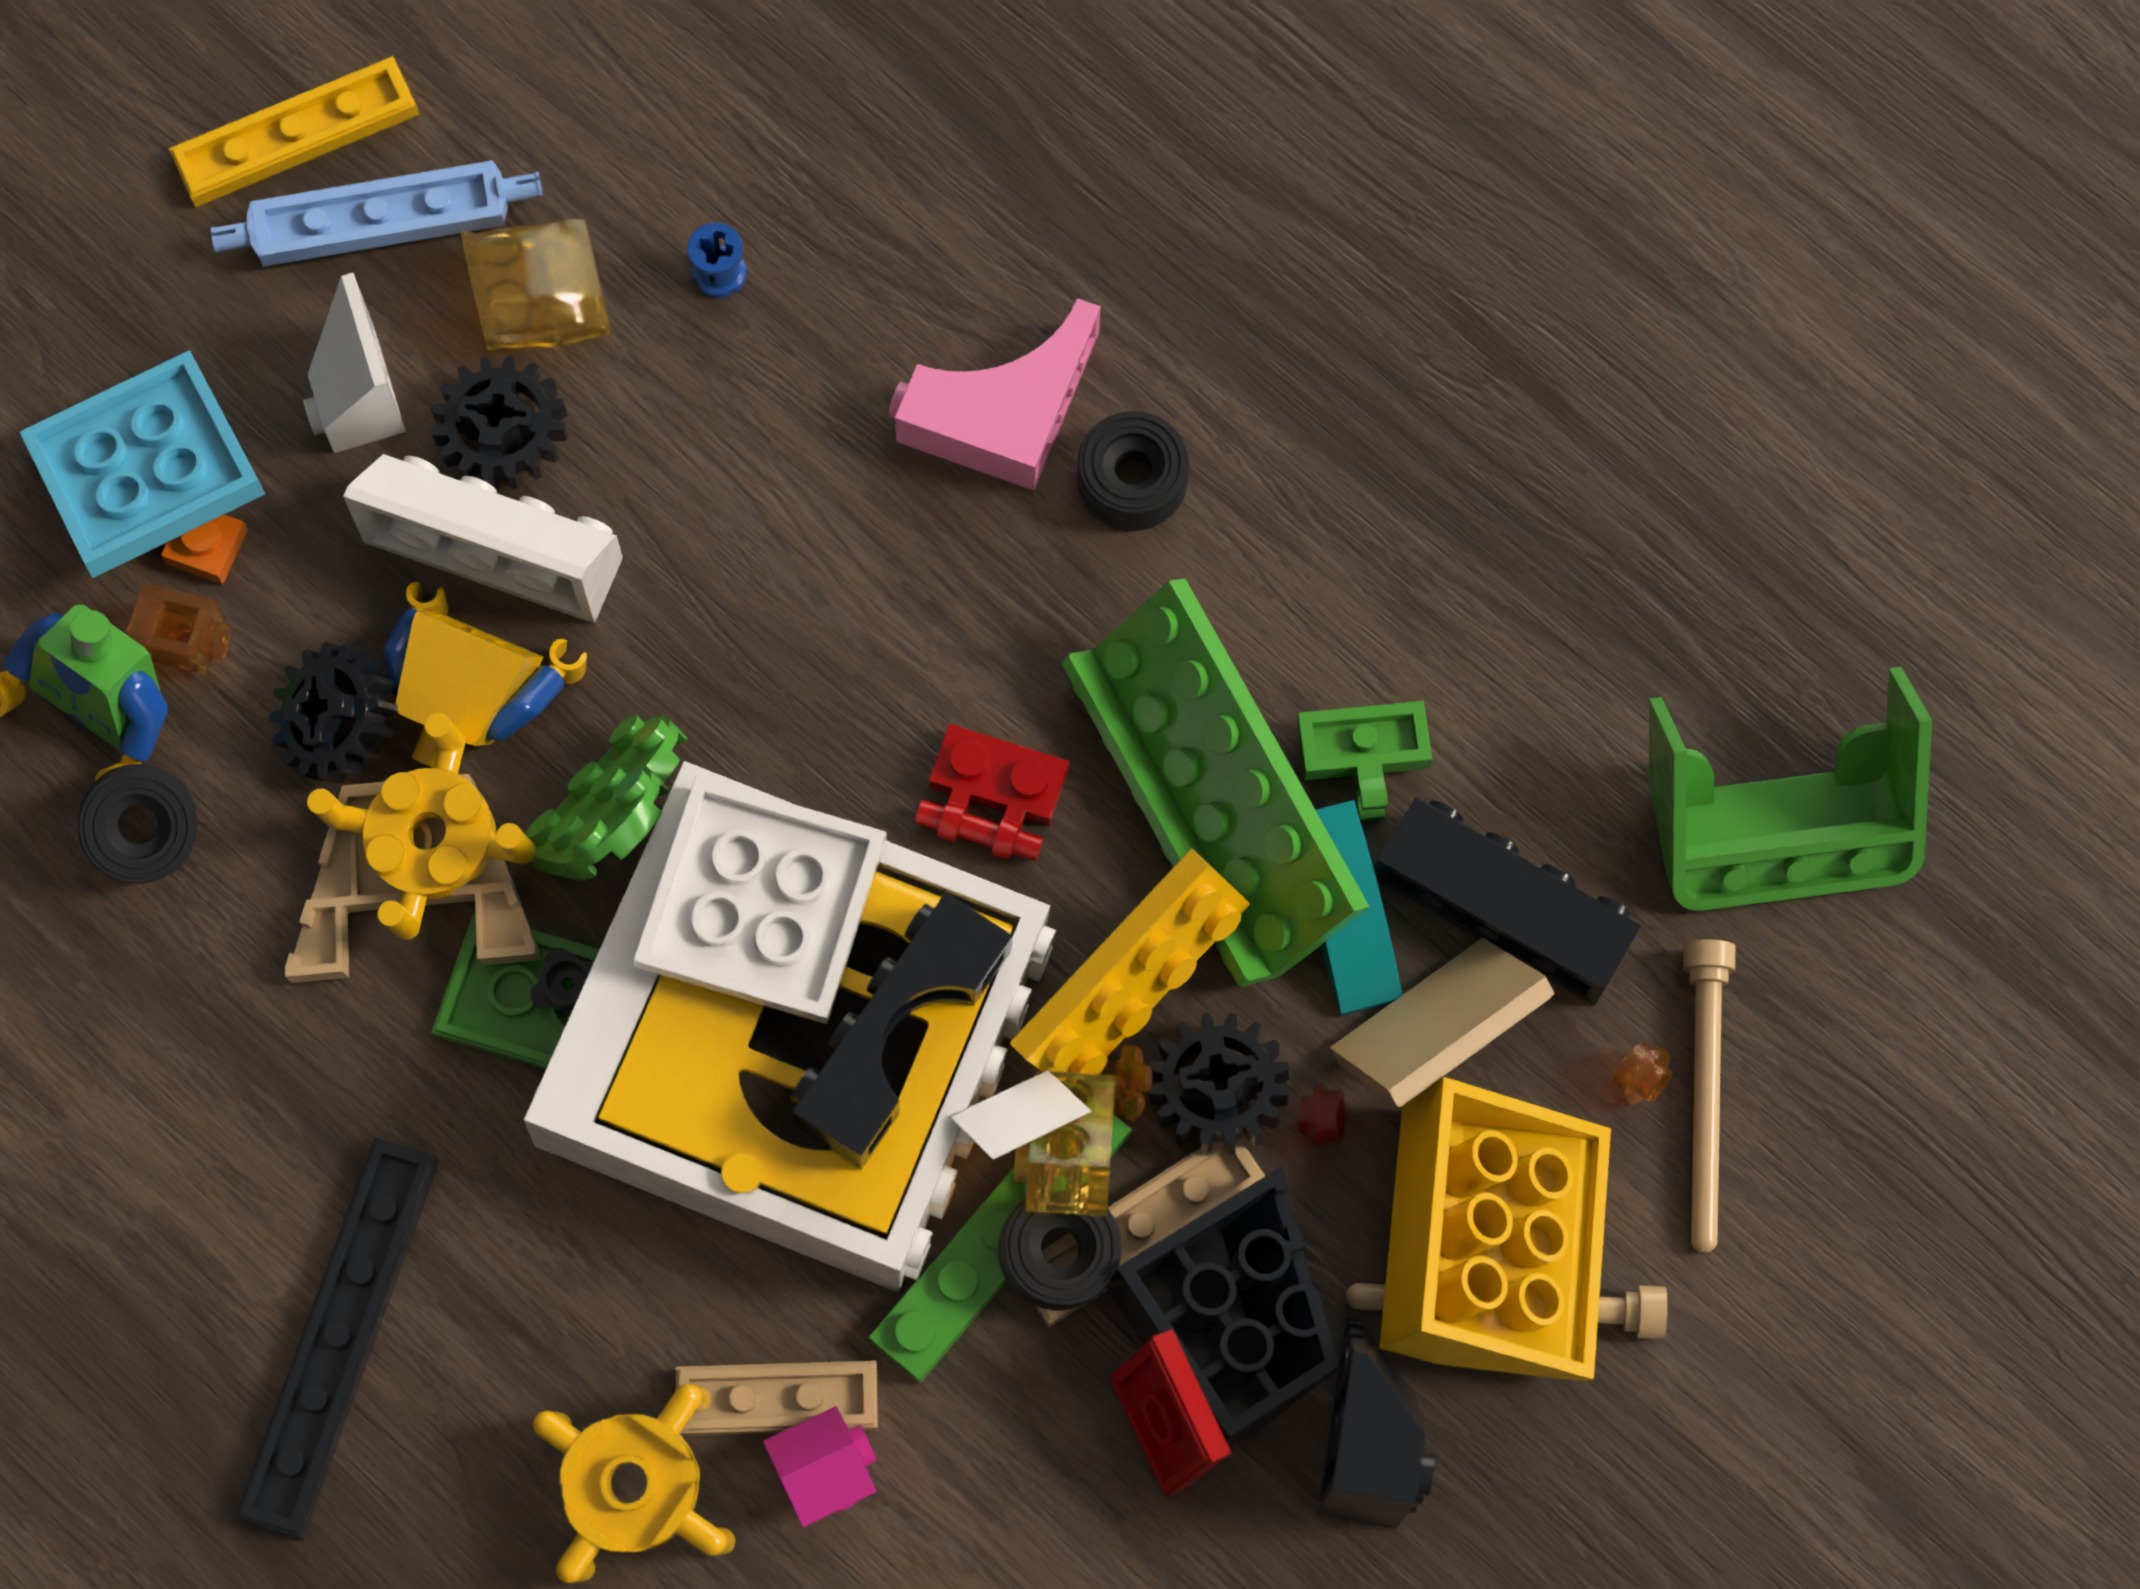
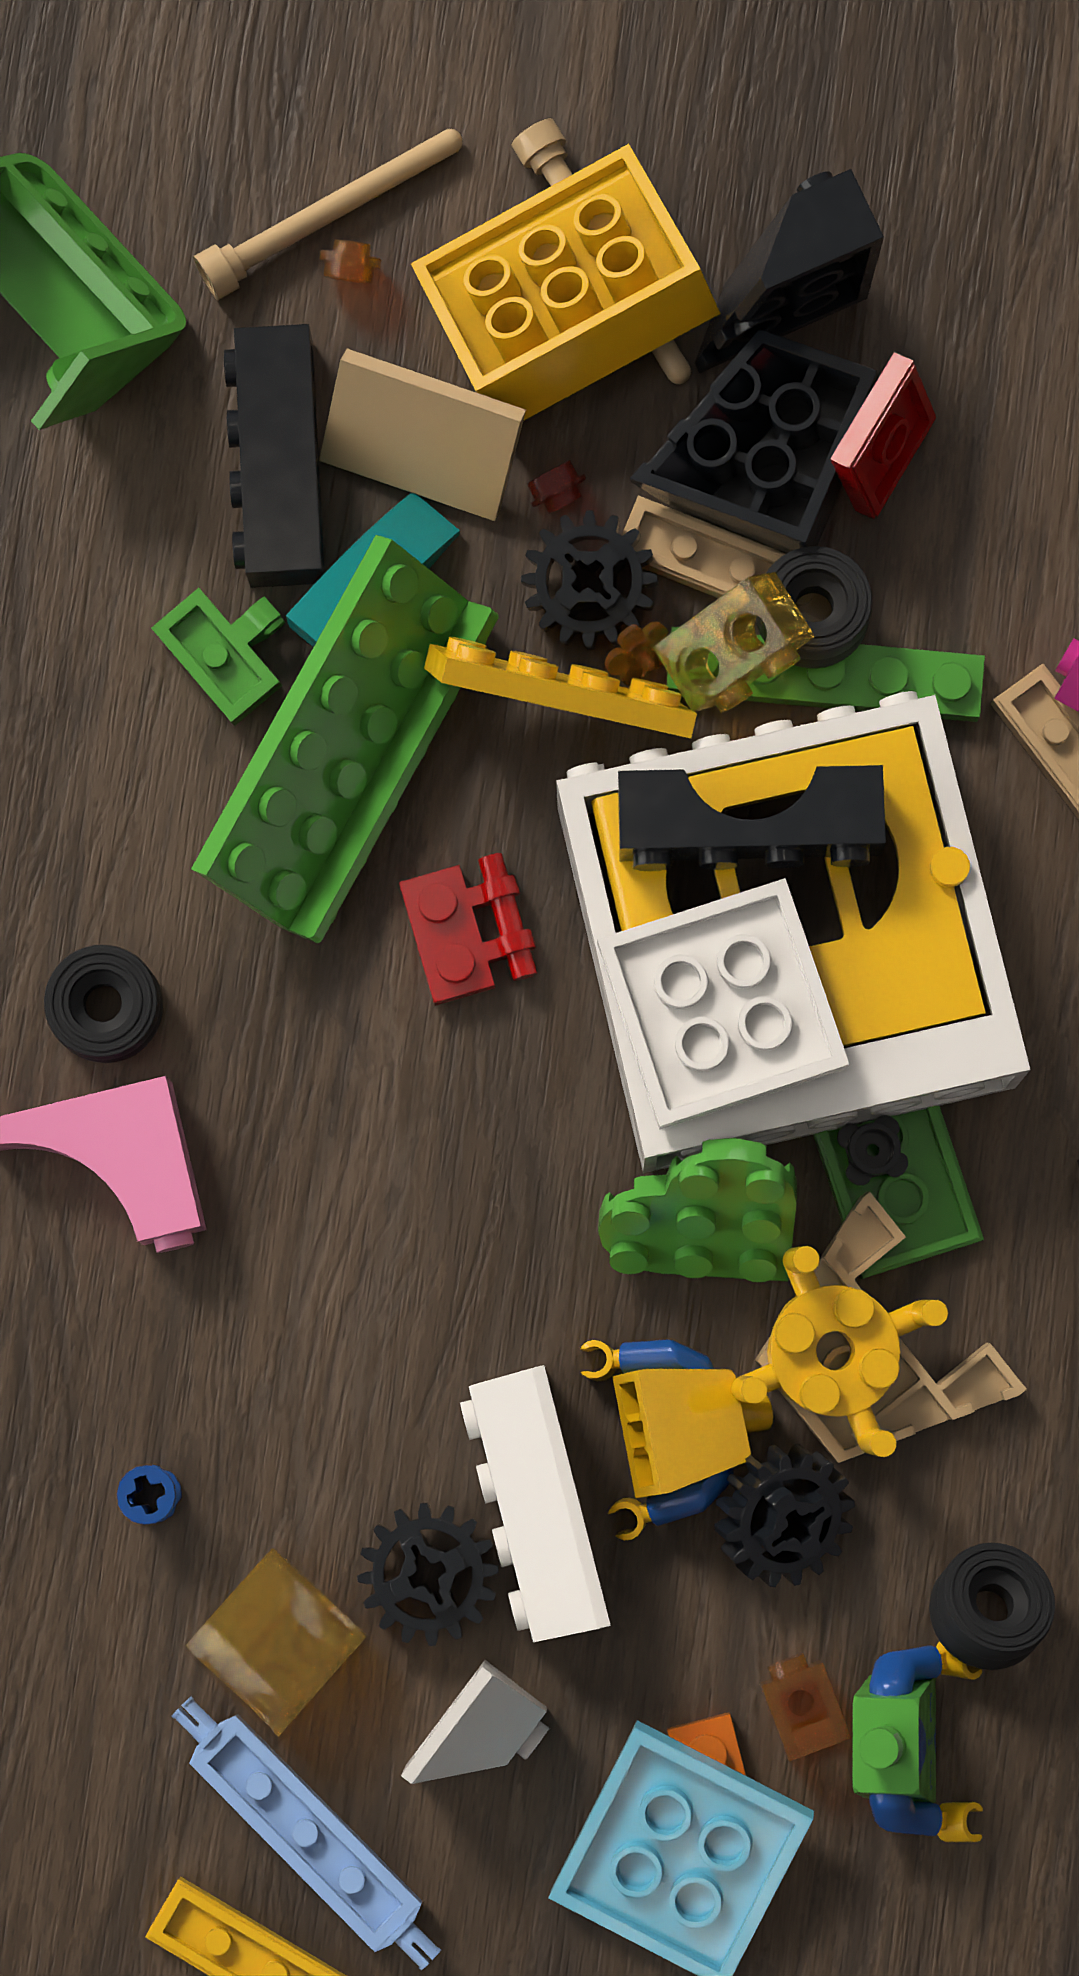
camera: 120 degrees left, 10 degrees up
(1020, 1114) = (745, 686): white sticker -> none

